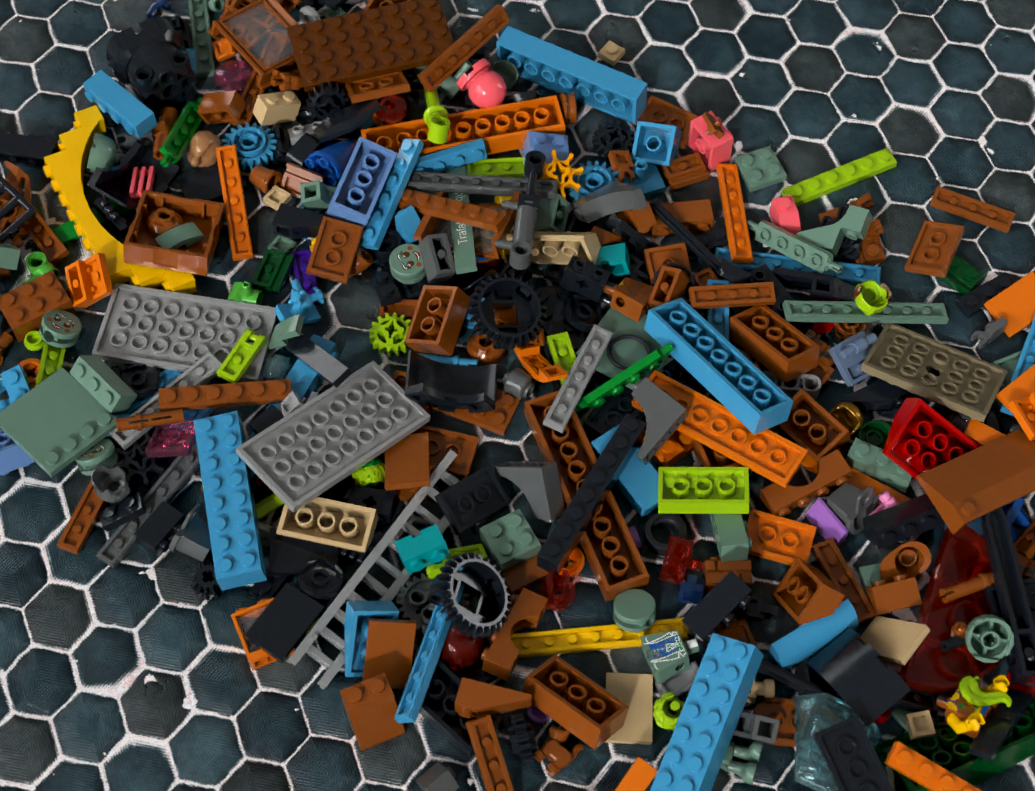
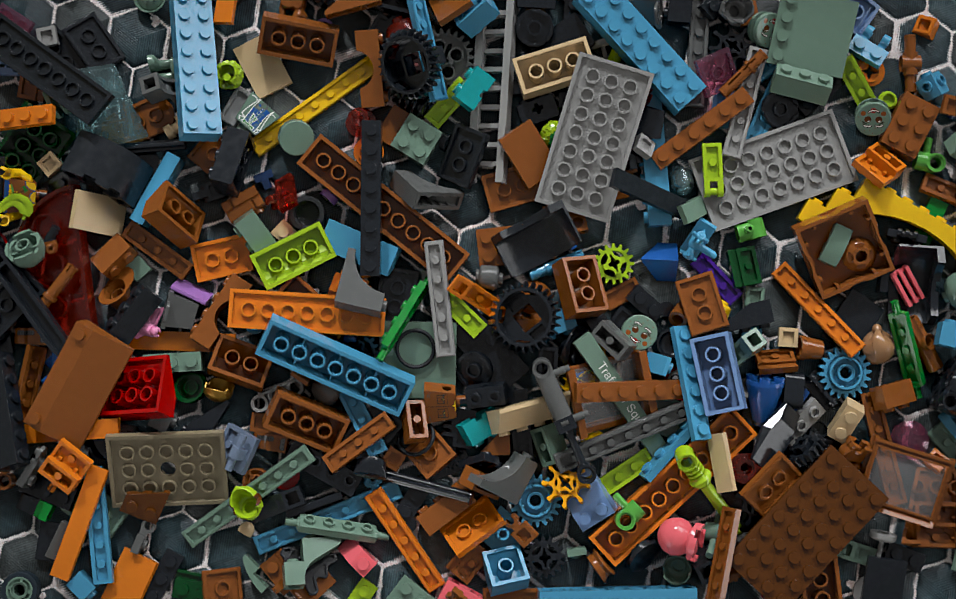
camera: 150 degrees right, 25 degrees up
(341, 314) = (662, 261): none -> blue slope
(408, 117) = (721, 463): none -> tan tile
(519, 121) = (632, 509): none -> bright green piece
(582, 131) = (576, 552): none -> sand green tile
(667, 184) = (472, 526): none -> orange plate
(700, 531) = (283, 230): none -> tan plate
(893, 252) = (251, 567): none -> sand green slope
(973, 355) = (145, 504): none -> reddish brown wing

